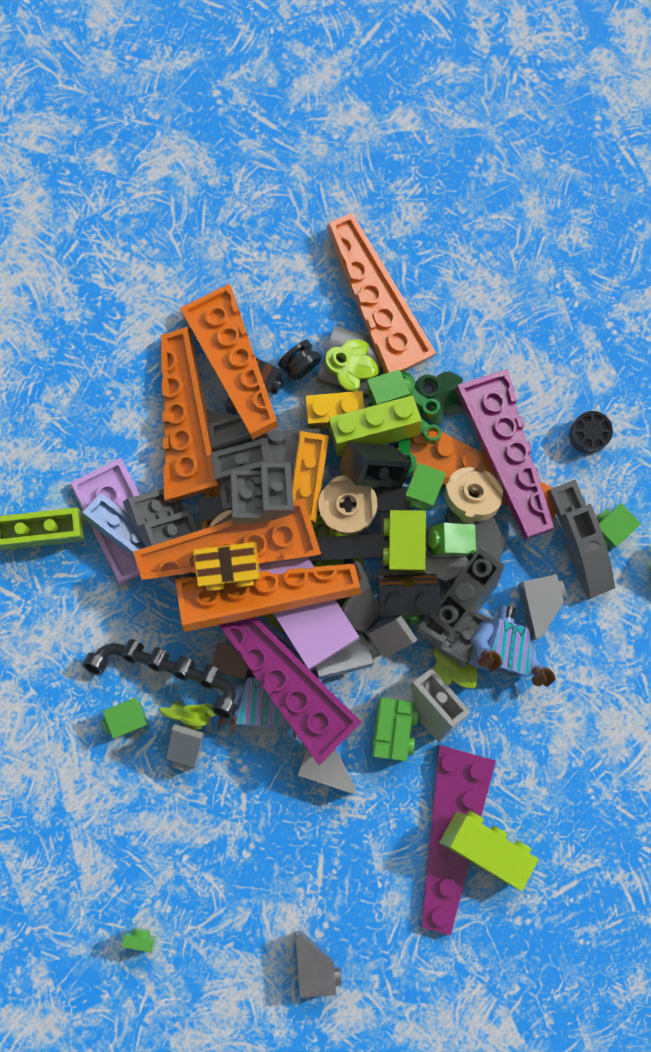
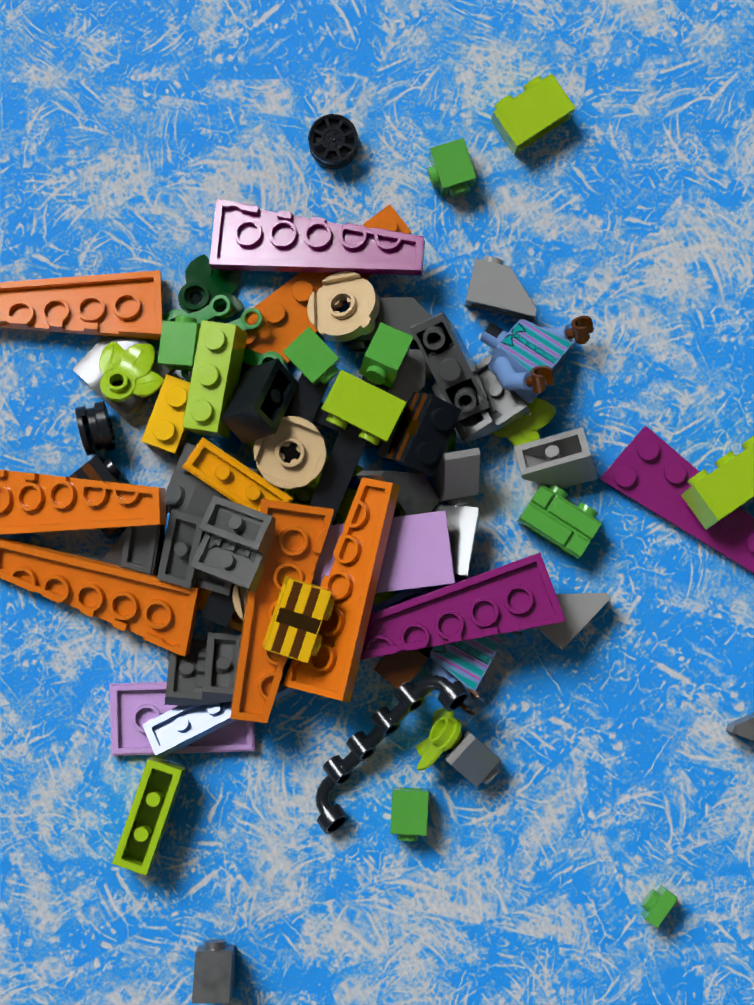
camera: 60 degrees left, 5 degrees up
(584, 537) = (449, 207): dark grey slope -> none

